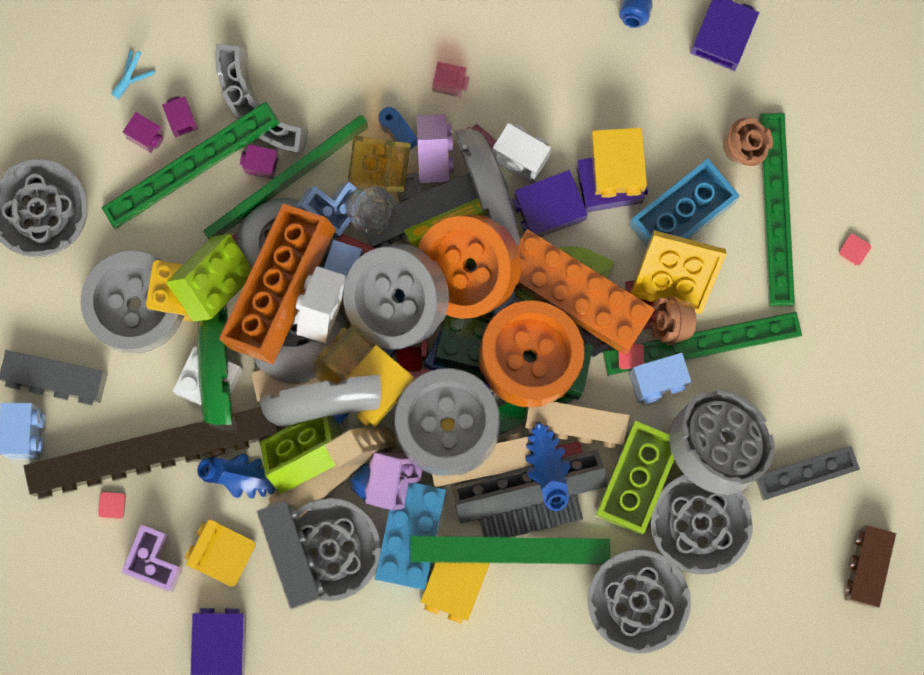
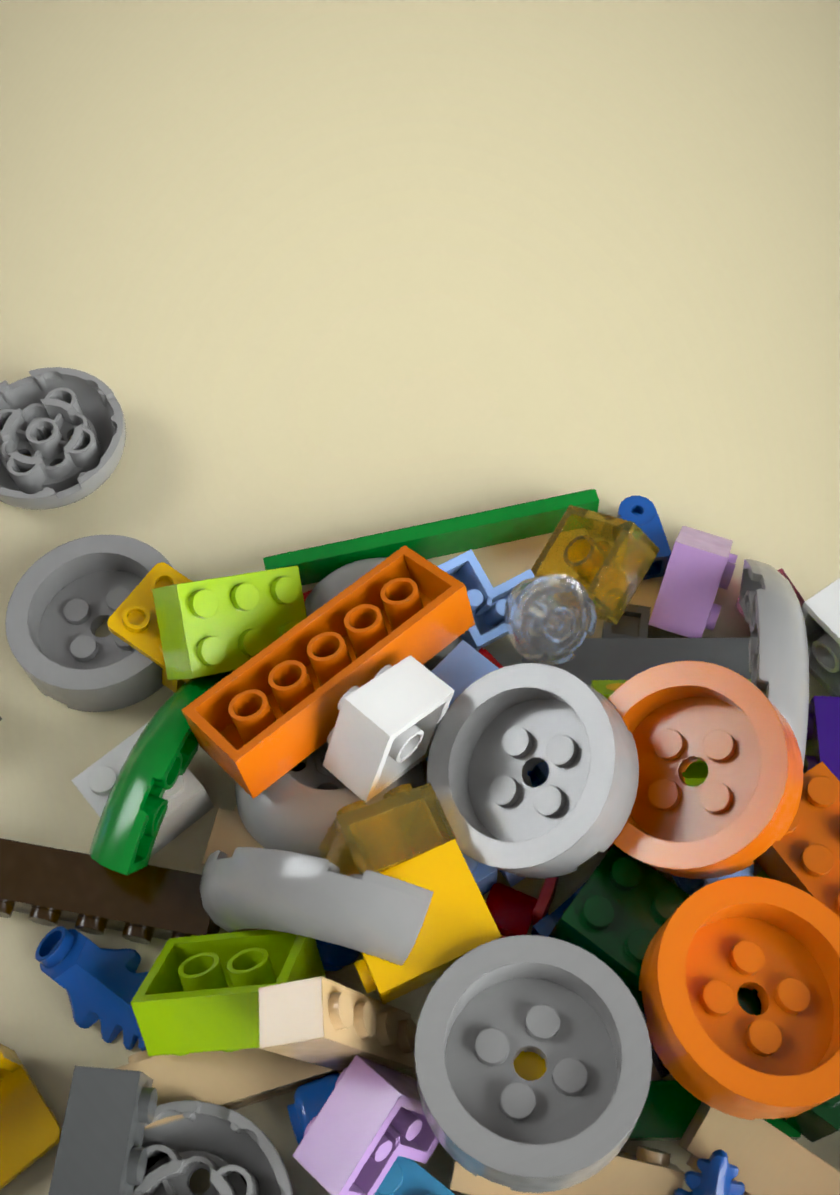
camera: 30 degrees right, 20 degrees down
(129, 68) = (270, 335): medium azure plant -> none
(144, 132) = (255, 403): magenta brick -> none
(179, 116) = (318, 402): magenta brick -> none
(190, 165) = (299, 464): green tile -> none
(238, 93) = (419, 401): light grey brick -> none
(259, 161) = (404, 499): magenta brick -> none
(450, 79) = (758, 498): clear pink brick -> none

